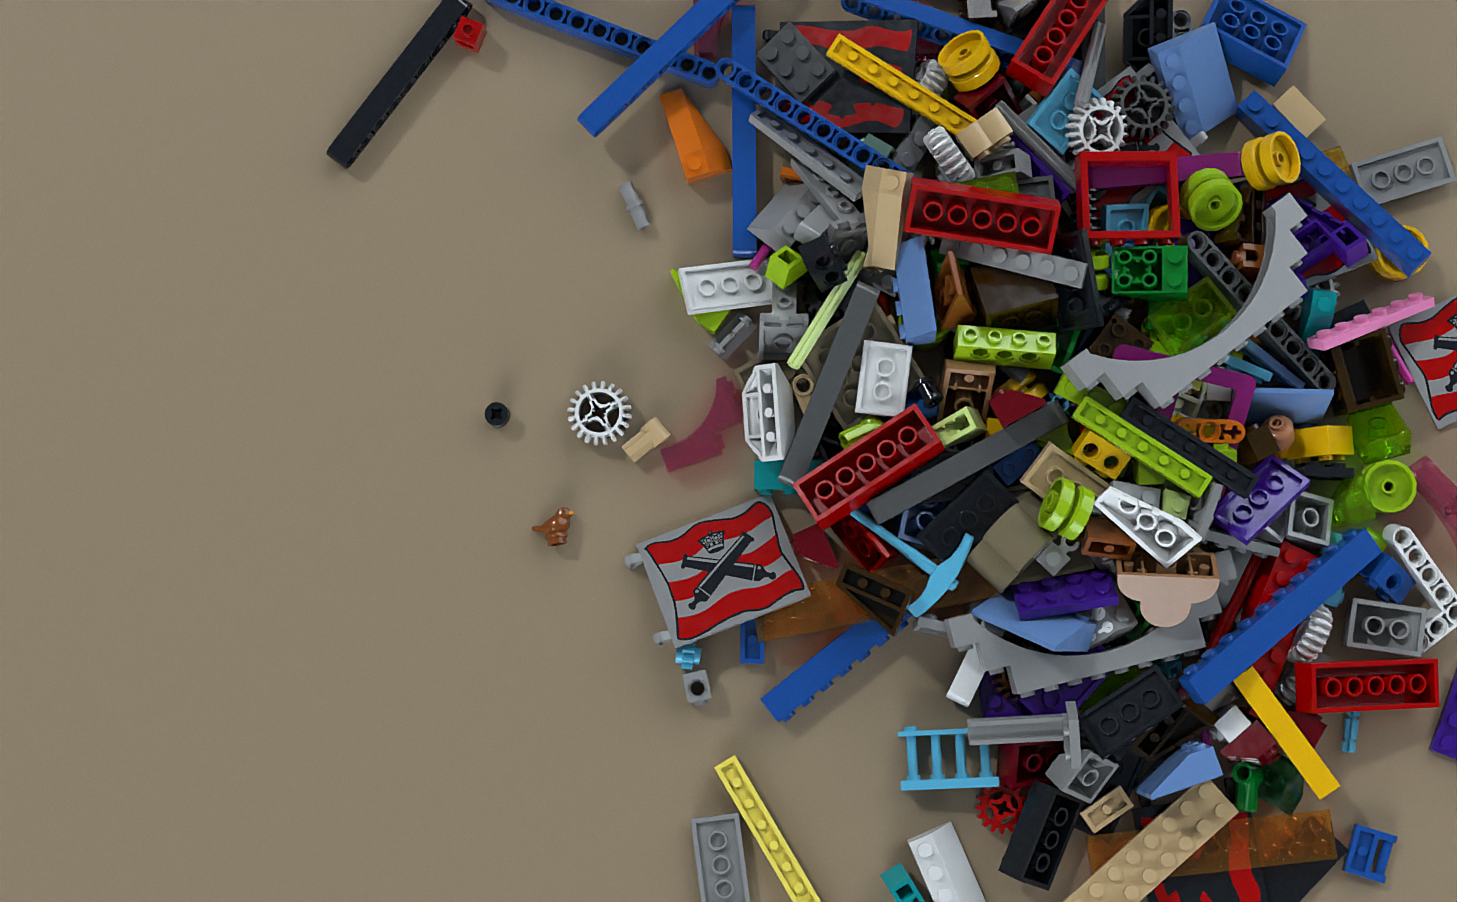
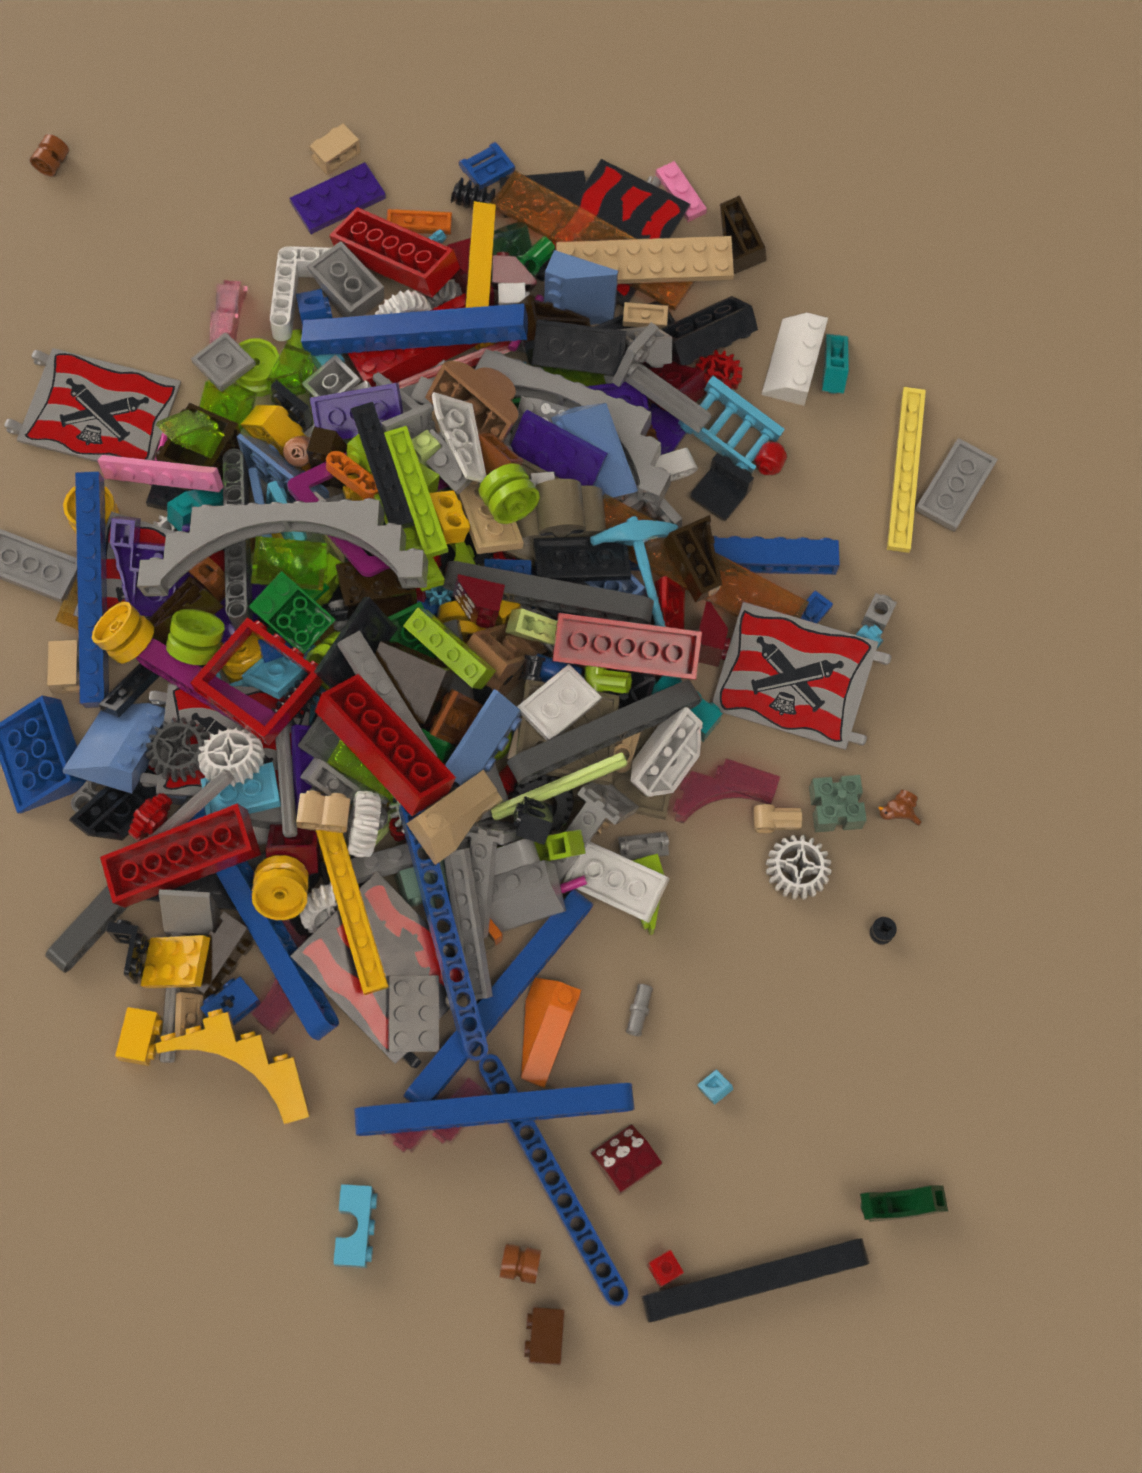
camera: 150 degrees left, 15 degrees down
(334, 214) = (904, 1203): none -> dark green arch
(533, 193) = (715, 1087): none -> medium azure tile
(557, 88) = (626, 1159): none -> dark red slope
(607, 489) = (837, 803): none -> sand green brick
(893, 758) = (770, 458): none -> red head
(911, 696) = (723, 487): none -> black bracket
(1117, 45) = (150, 816): none -> red gear
(1227, 127) = (128, 691): none -> black plate
(1352, 807) = (467, 195): none -> black piece
(1375, 365) = (192, 431): none -> clear neon green slope
(1378, 747) = (421, 221): none -> orange tile
(1412, 460) = (223, 361): none -> light grey tile

